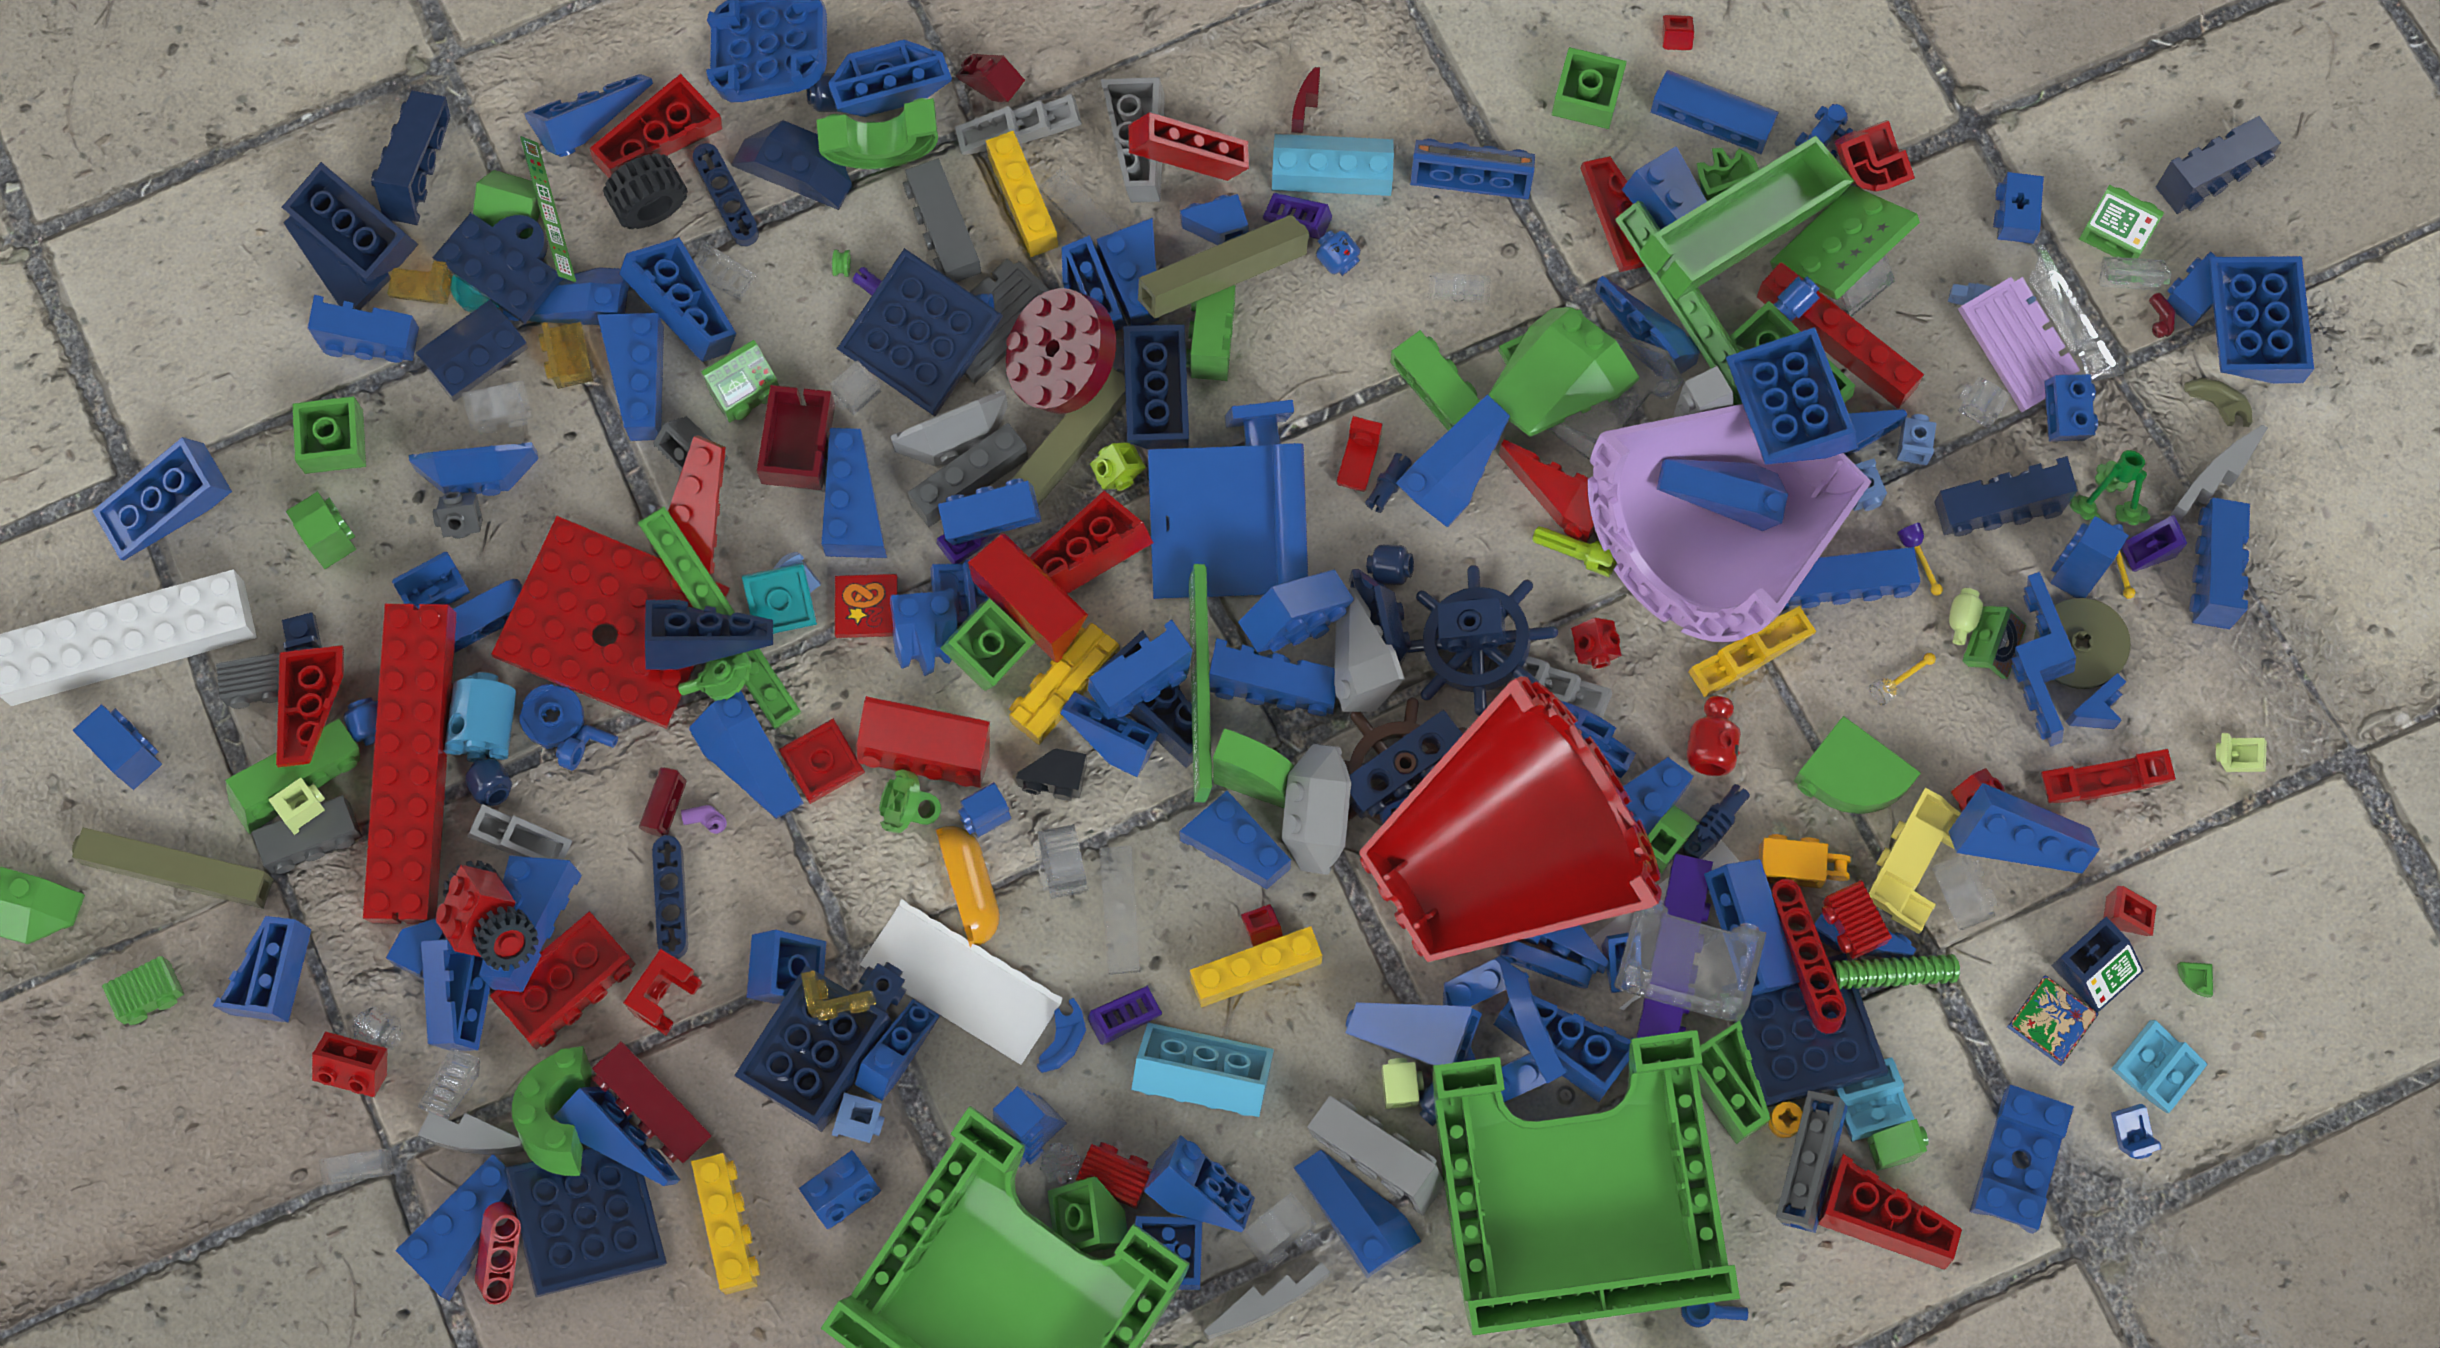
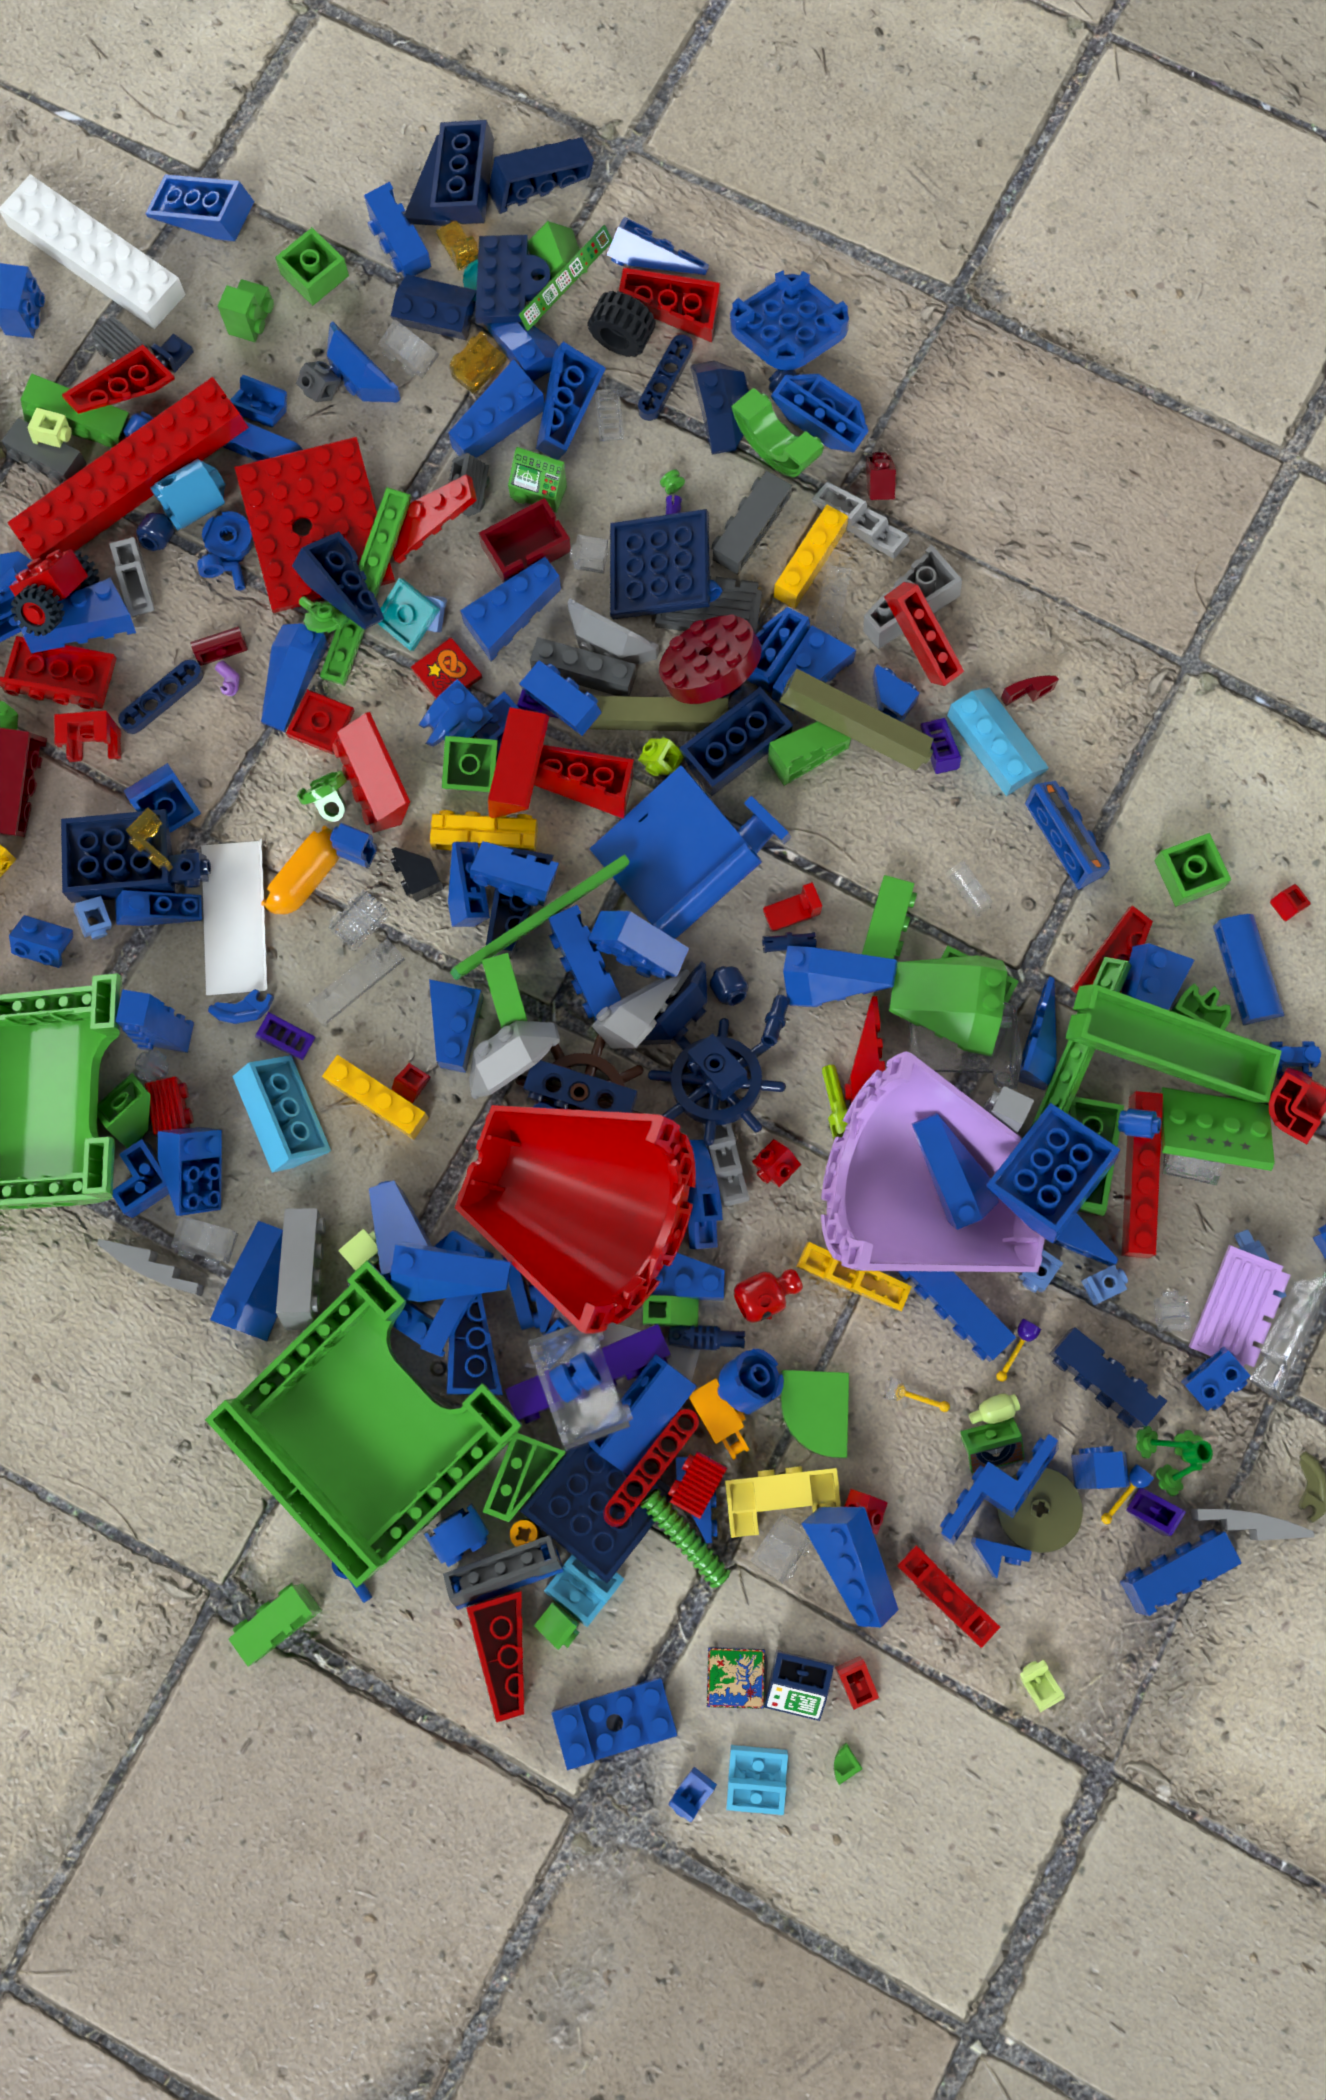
camera: 55 degrees right, 5 degrees up
(1338, 252) = (932, 789): blue head -> none
(1457, 546) = (775, 1020): none -> dark blue pin
(1492, 1009) = (435, 1273): none -> blue wedge
(1685, 965) = (572, 1378): none -> blue wheel
(1747, 1179) = (457, 1534): none -> blue brick
(1790, 807) = (750, 1381): none -> blue brick

